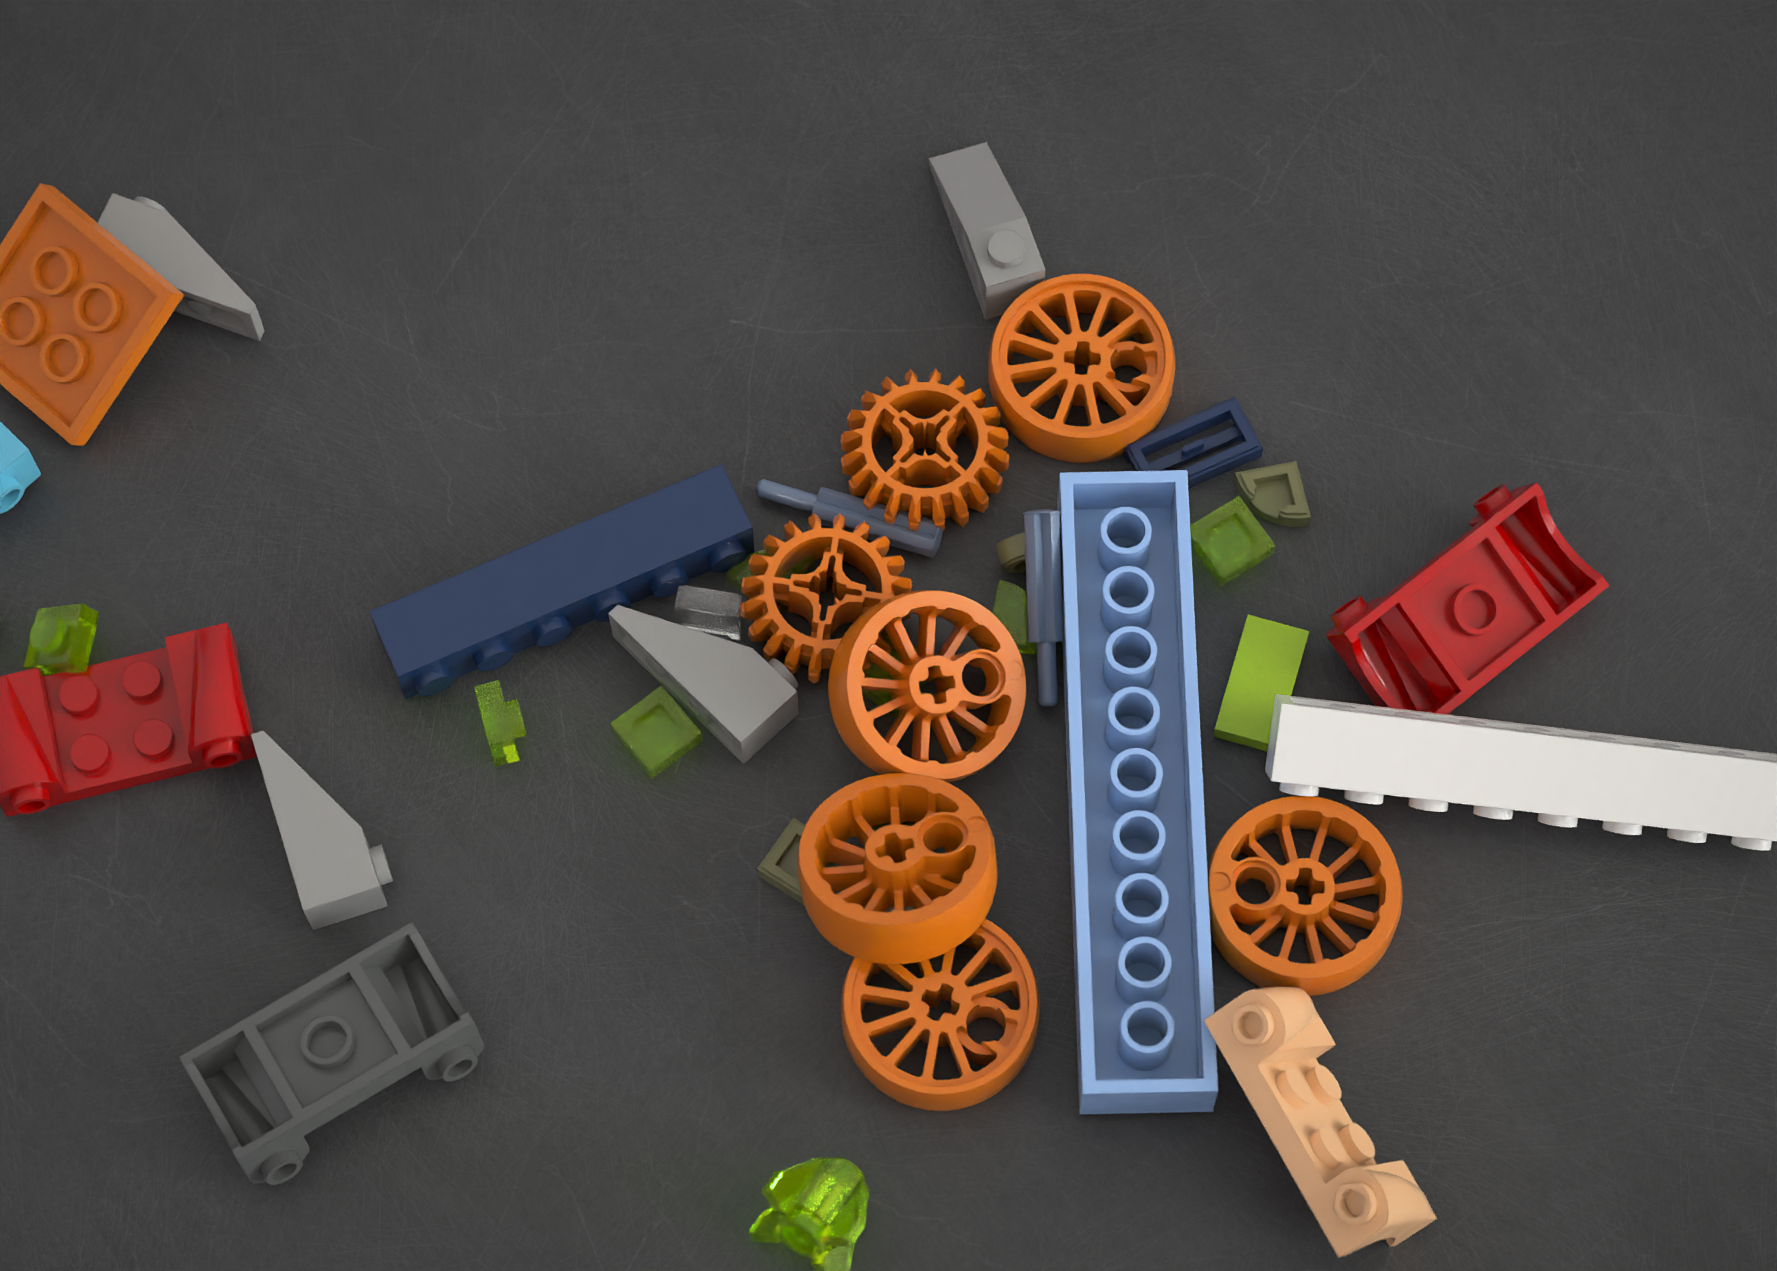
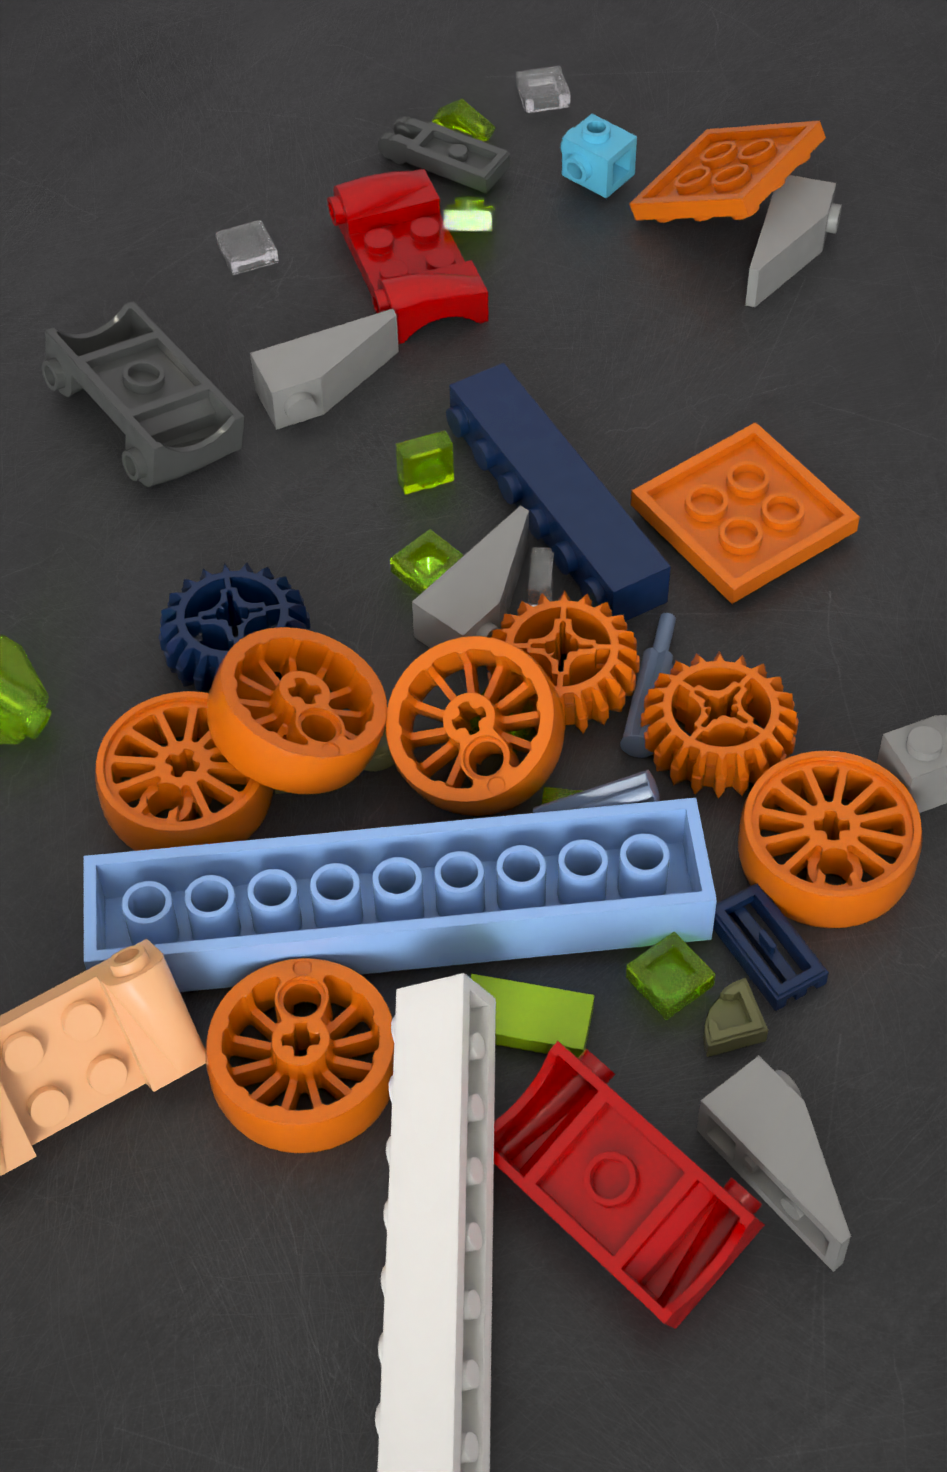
camera: 85 degrees right, 15 degrees down
(50, 929) = (246, 247): none -> clear tile
(618, 385) = (744, 512): none -> orange plate
(711, 951) = (201, 618): none -> dark blue gear
(1432, 467) = (770, 1141): none -> light grey slope

